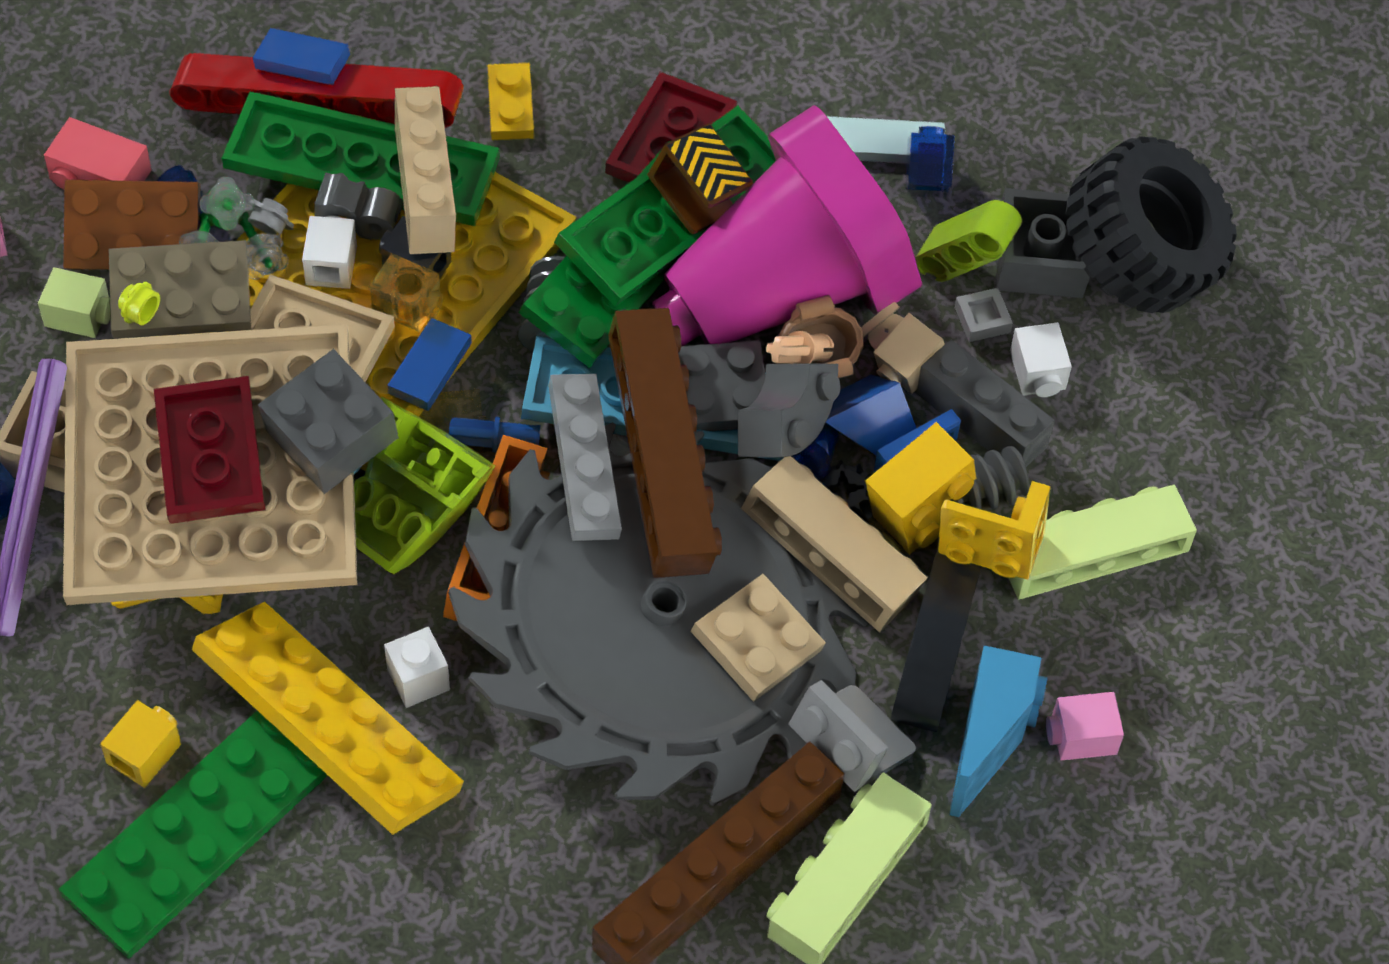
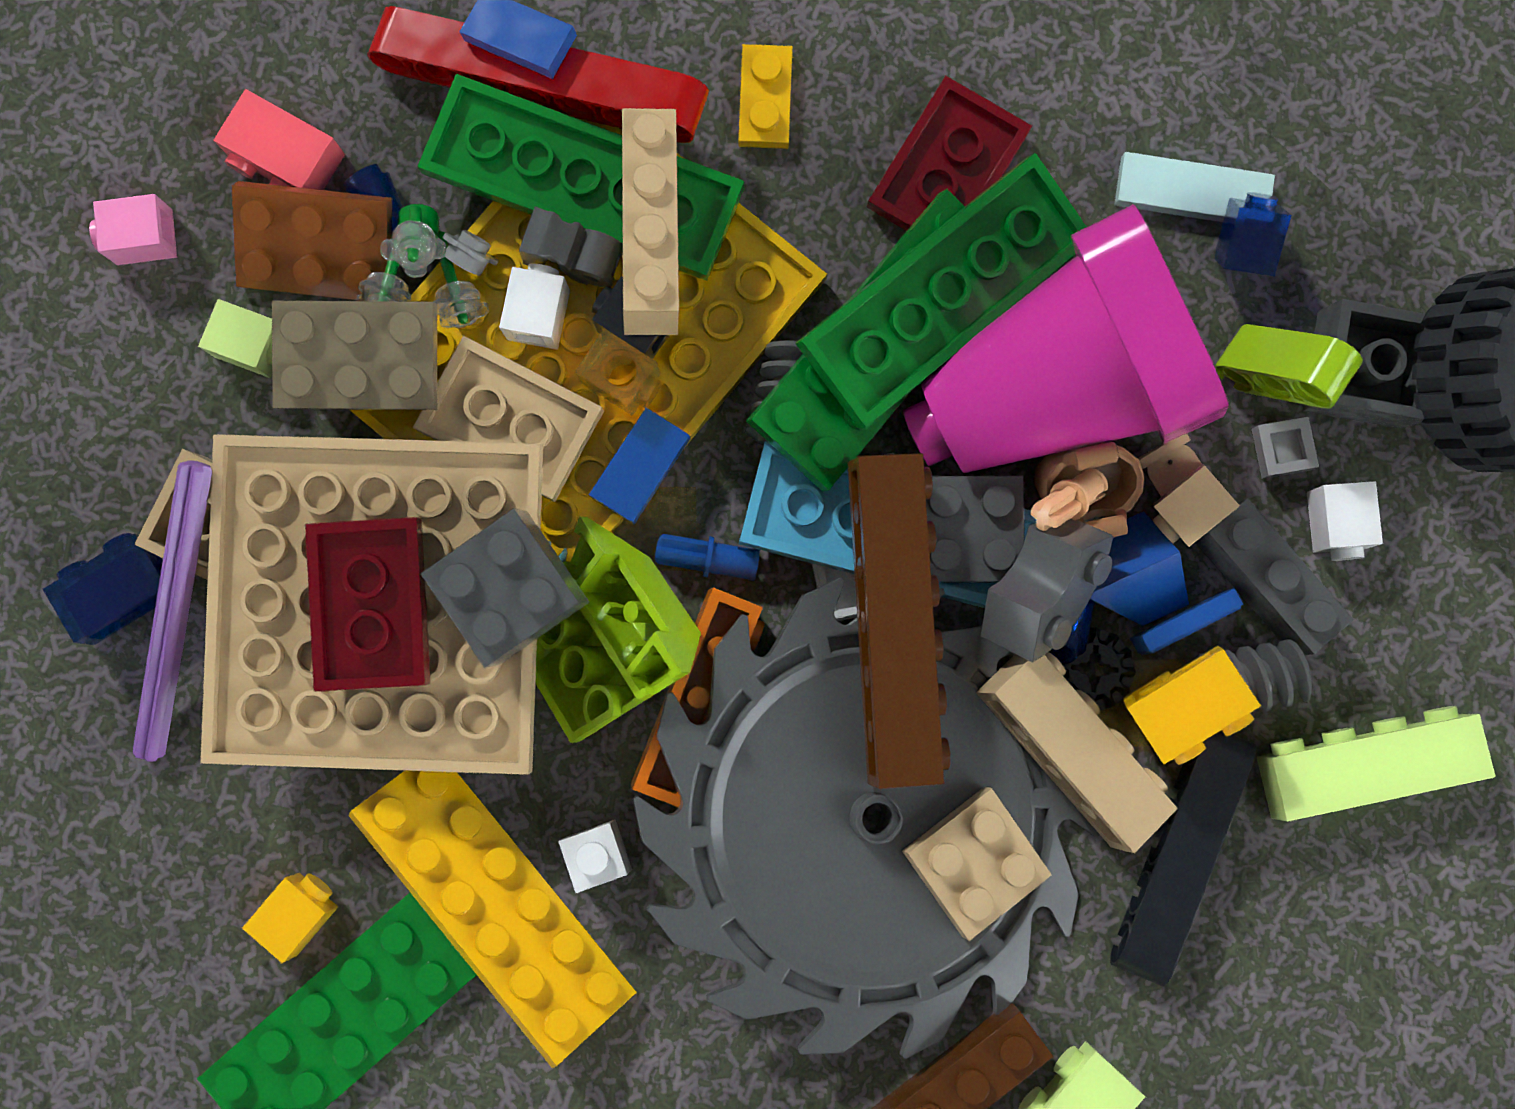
camera: 10 degrees right, 25 degrees up
(138, 303) = (299, 388): neon yellow plate -> none
(584, 457) = (803, 631): light grey plate -> none
(698, 177) = (981, 274): piece -> none
(851, 733) = (1068, 993): light grey bracket -> none
(993, 540) = (1307, 798): yellow bracket -> none
(1001, 706) = (1227, 1008): dark azure slope -> none
(1085, 726) = (1327, 1001): bright pink brick -> none

